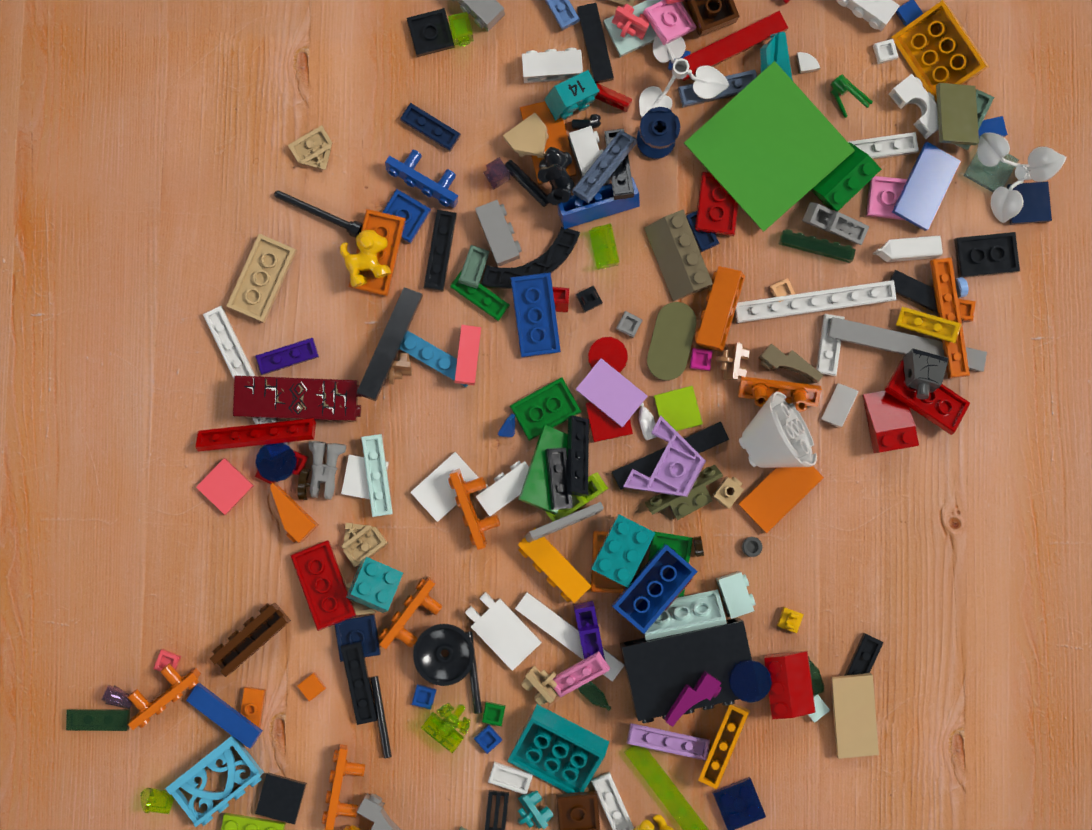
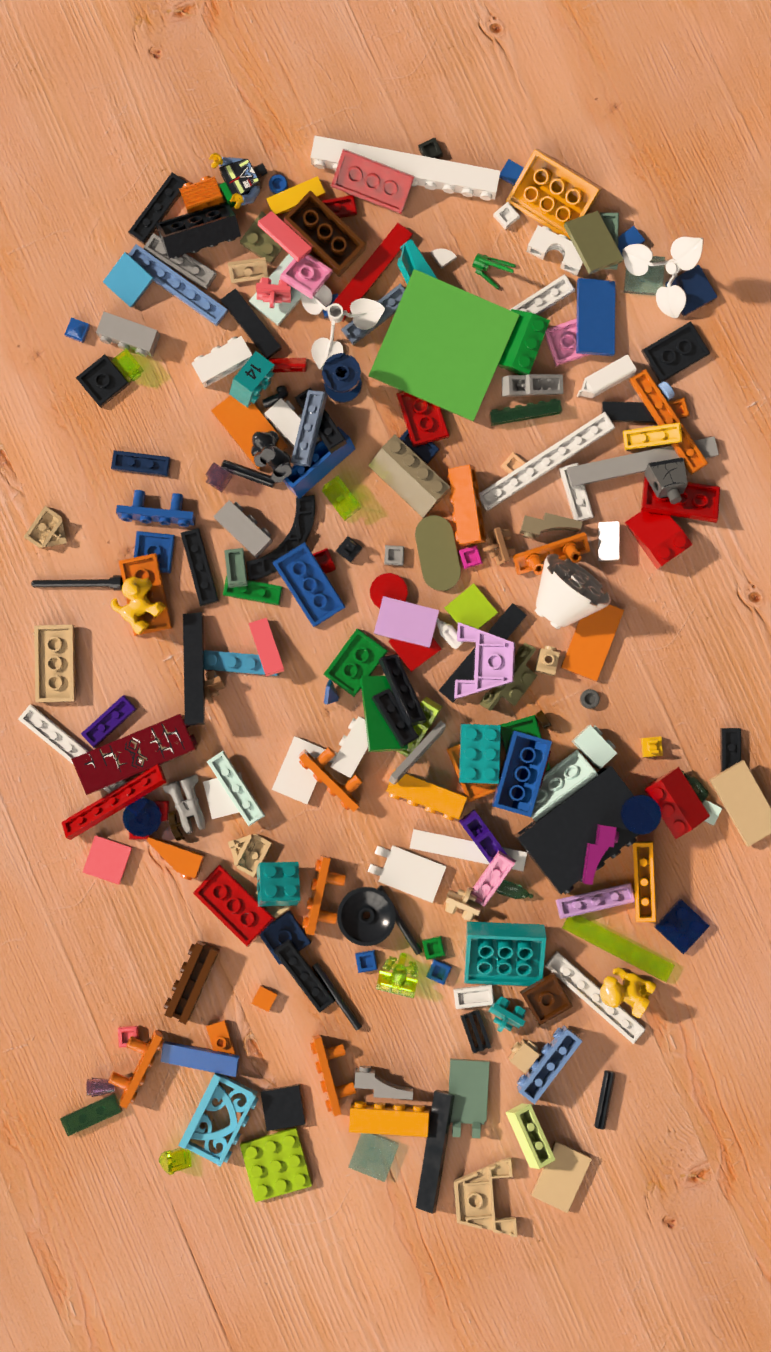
camera: 20 degrees left, 0 degrees up
(528, 137) = (231, 433): tan slope -> none

